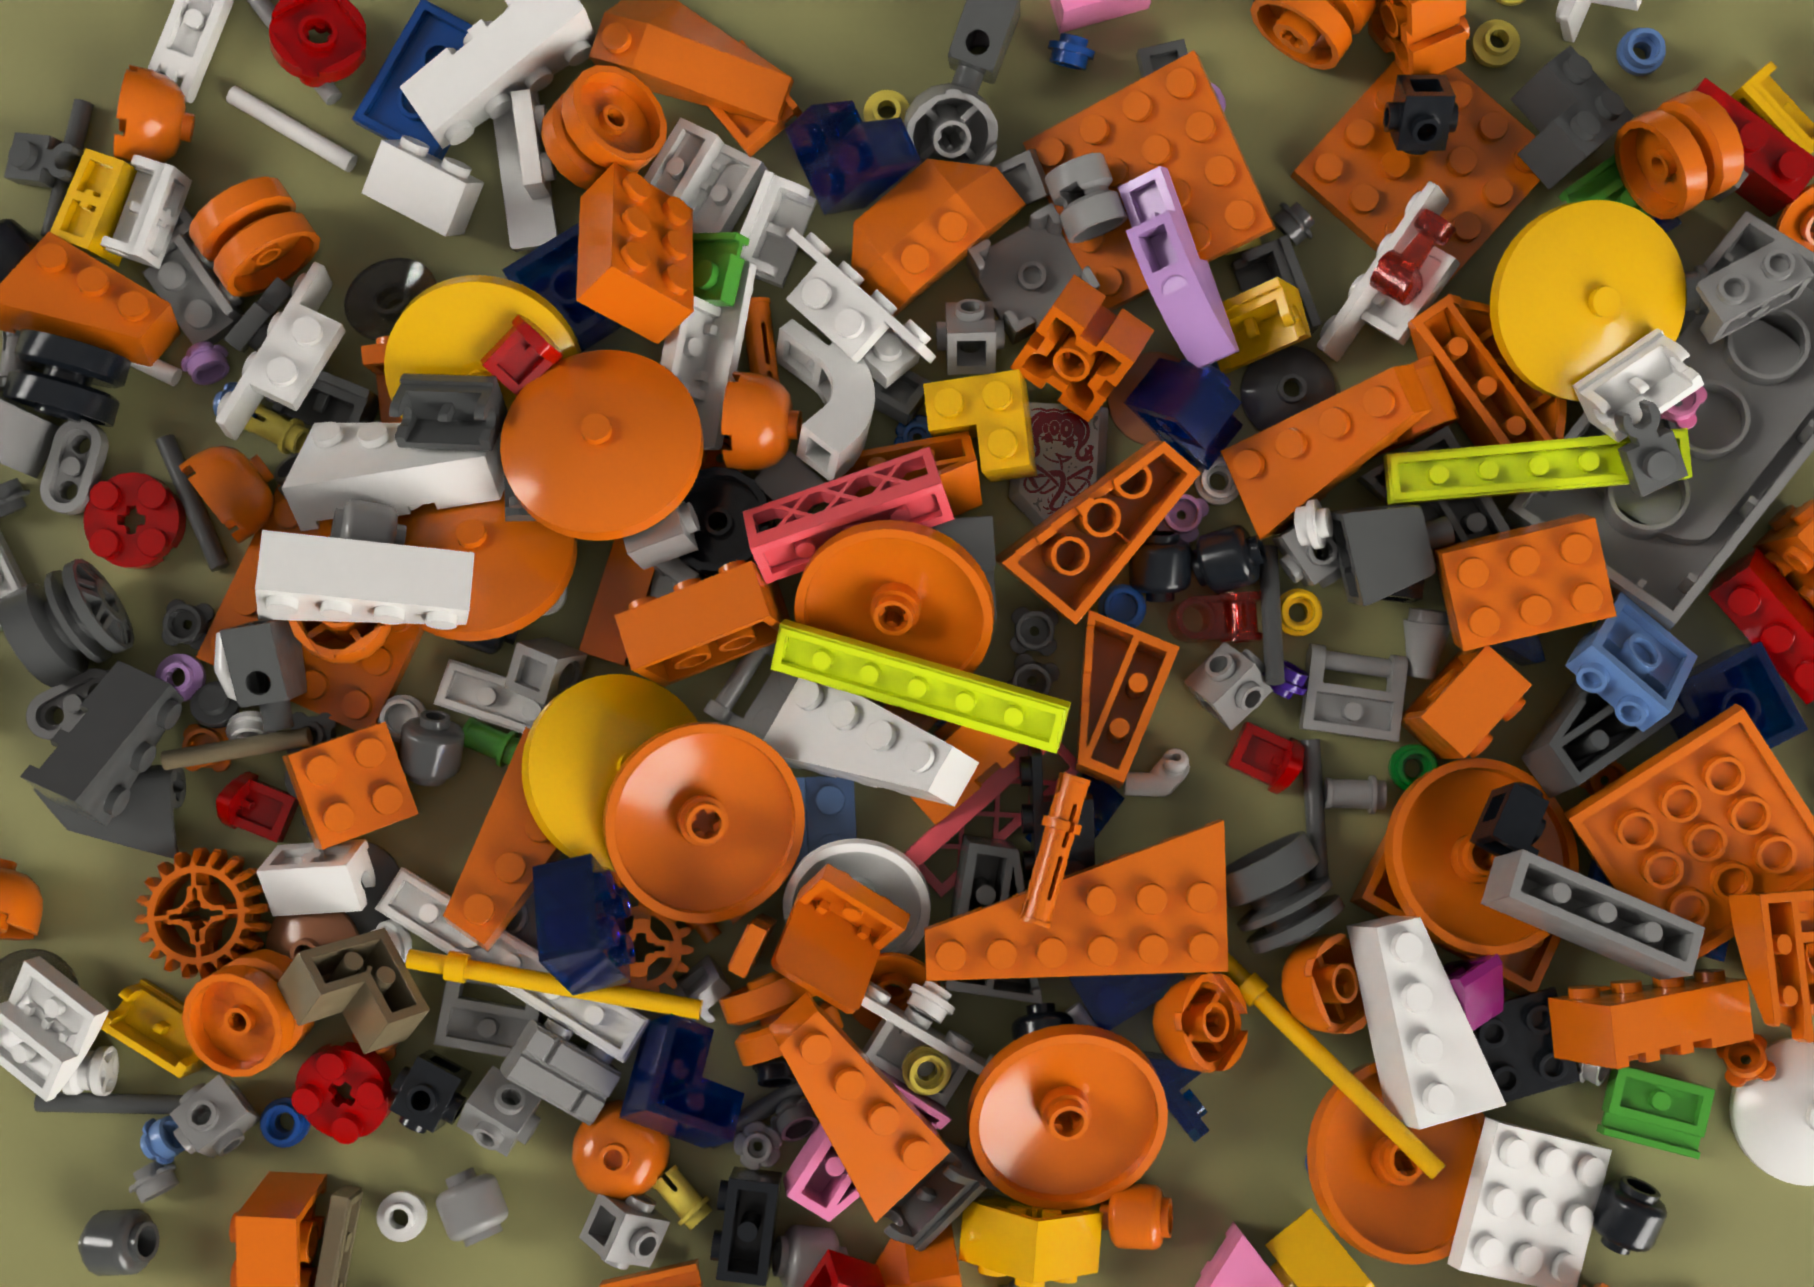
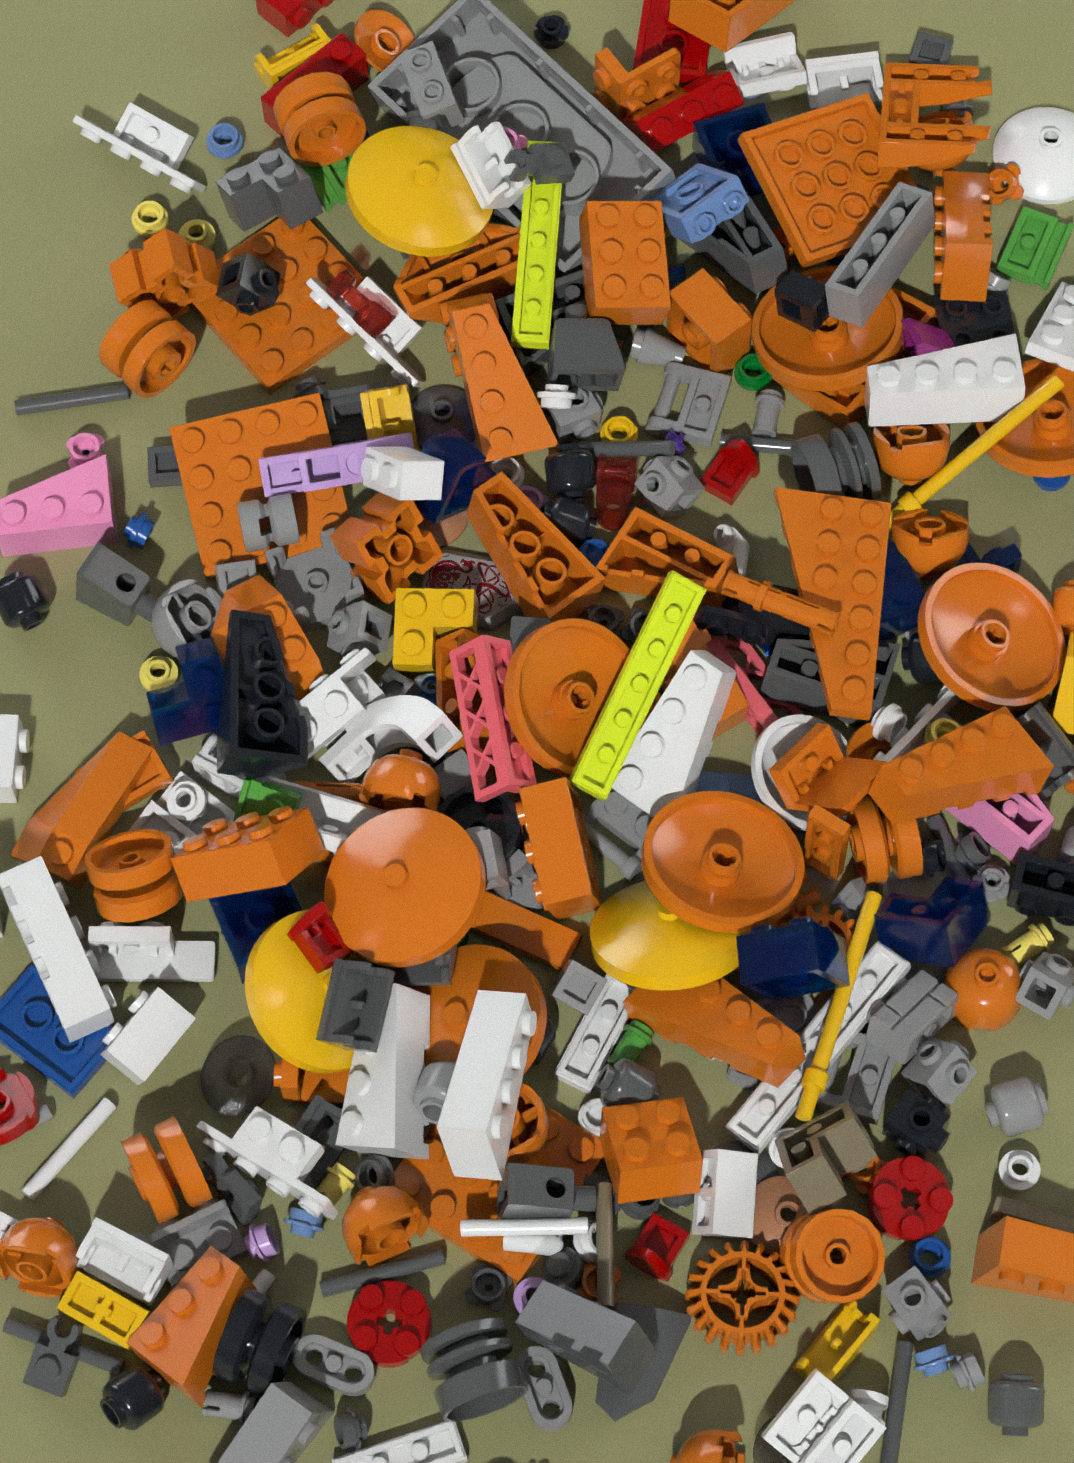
camera: 80 degrees left, 20 degrees down
(229, 617) = (524, 1226): none -> white bar
(728, 183) = (197, 803): none -> white plate
(829, 230) = (258, 711): none -> black wedge
(1162, 347) = (403, 473): none -> white brick

